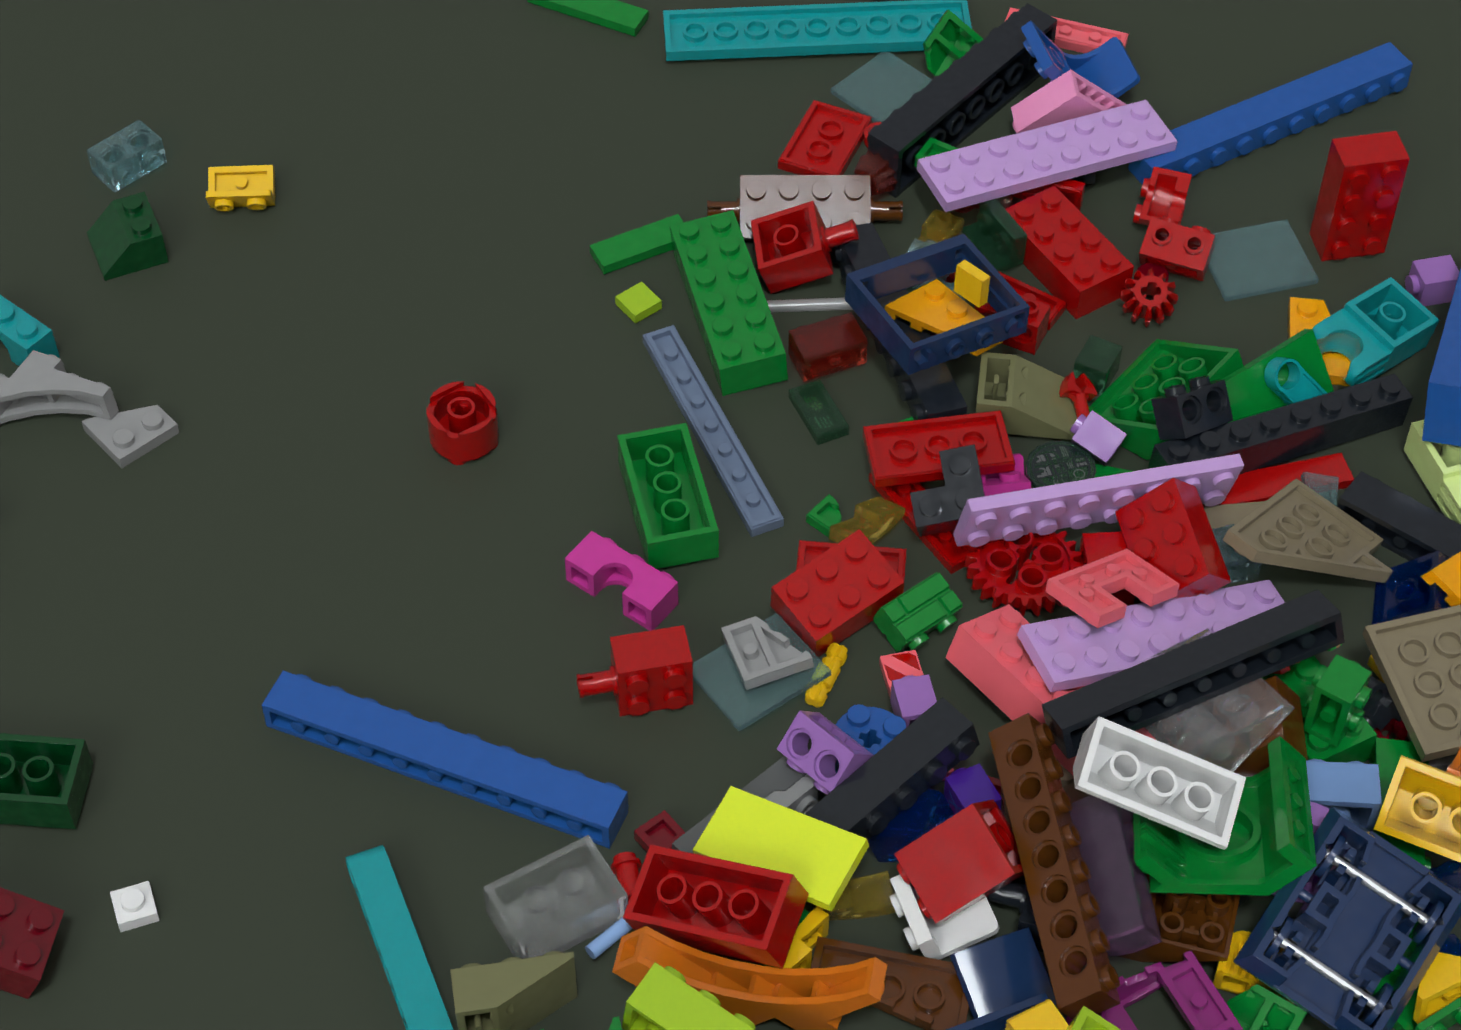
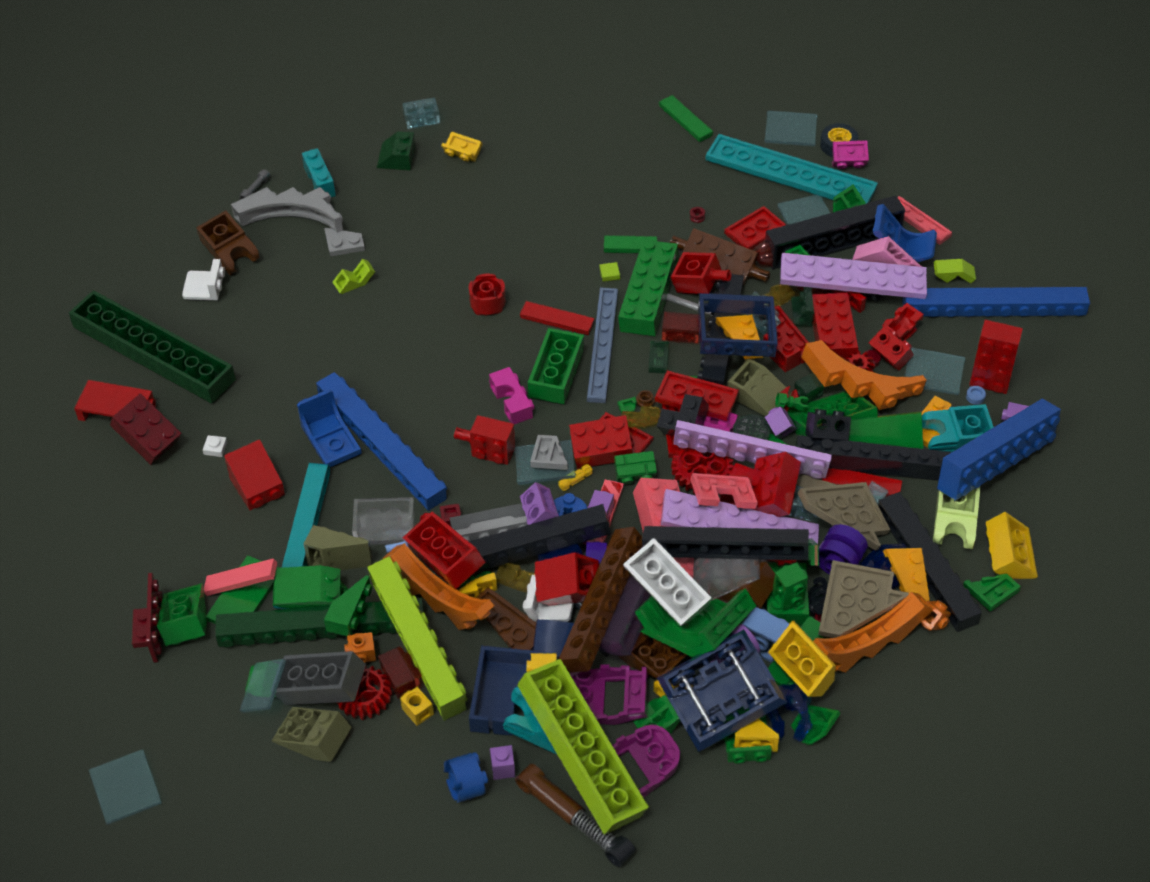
camera: 30 degrees right, 0 degrees up
(189, 497) = (348, 280): none -> lime slope
(257, 928) = (254, 475): none -> red slope
(336, 785) = (327, 429): none -> blue bracket
(604, 415) = (557, 318): none -> red tile
(716, 161) = (697, 218): none -> dark red bush
(783, 840) = (491, 538): neon yellow tile -> none
(849, 490) = (645, 398): none -> reddish brown plate
(971, 283) = (754, 320): yellow tile -> none
(1081, 399) = (782, 400): none -> green piece
(1173, 321) = (856, 381): none -> orange arch
(1174, 89) = (951, 268): none -> lime slope
(1298, 385) = (899, 437): teal piece -> none
(1345, 272) = (976, 395): none -> medium blue tile
(1357, 593) = (843, 545): none -> dark purple wheel

